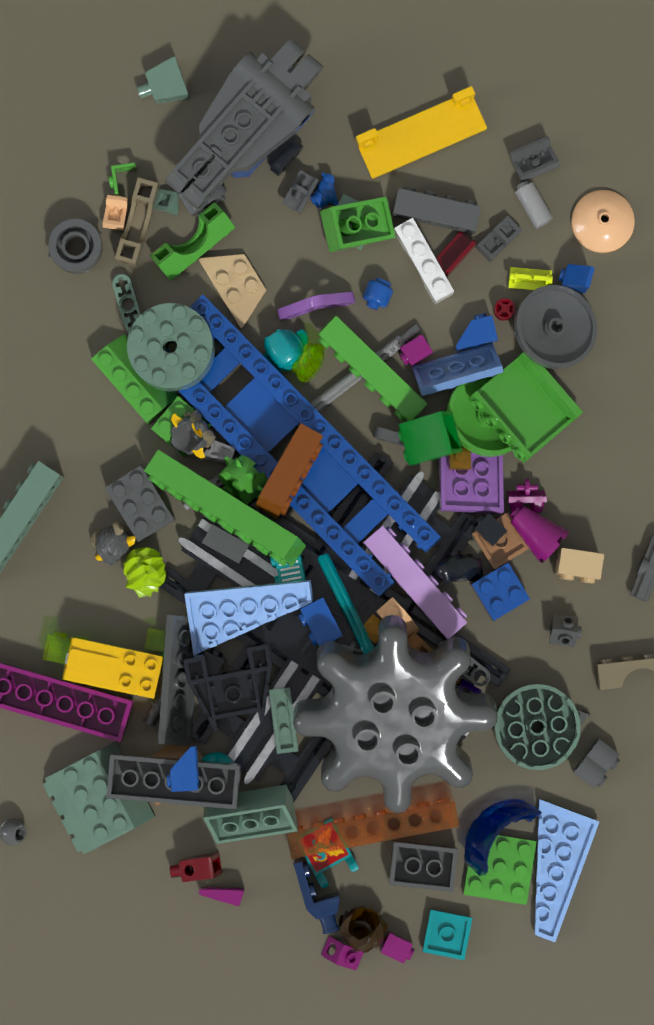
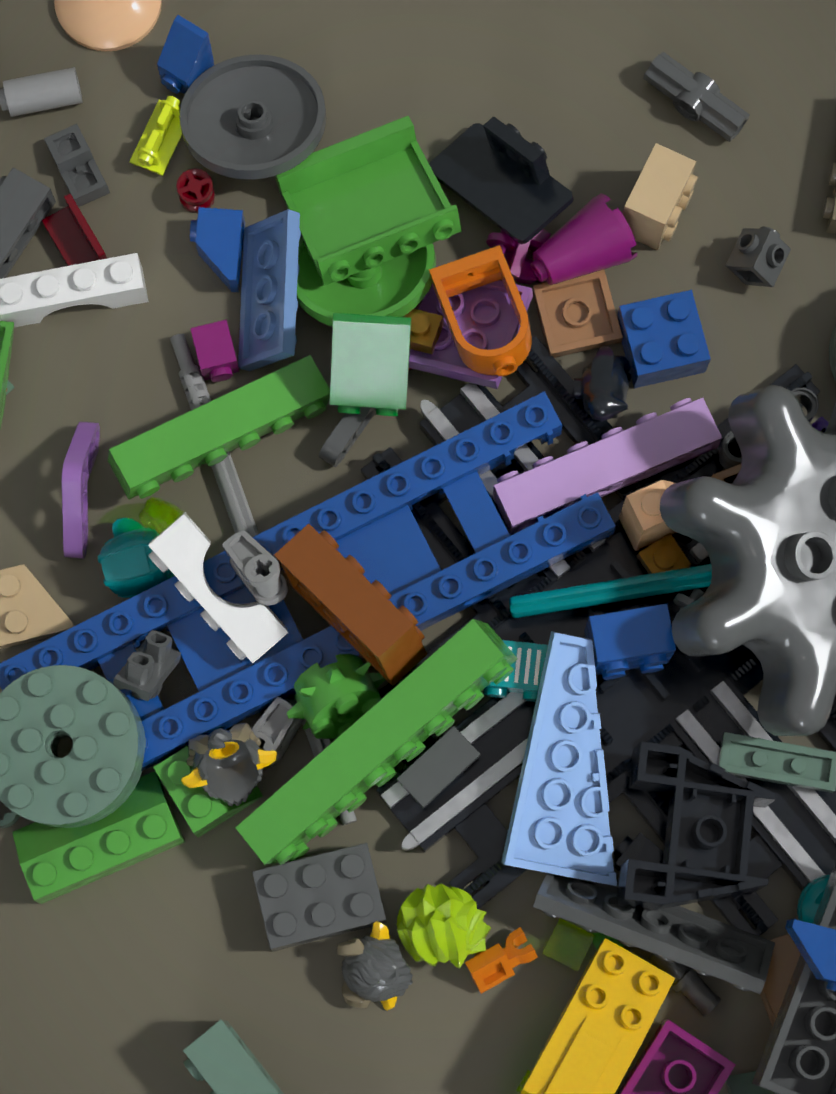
camera: 70 degrees left, 10 degrees down
(135, 607) = (496, 964): none -> orange plate
(226, 376) = (148, 667): none -> dark grey hips
(265, 422) = (250, 626): none -> white arch
(293, 415) = (256, 568): none -> light grey piece
(377, 293) = (97, 382): blue head -> none
(489, 529) = (555, 318): black brick -> none
(499, 475) = (470, 274): none -> orange window
(561, 475) = (503, 178): none -> black bracket

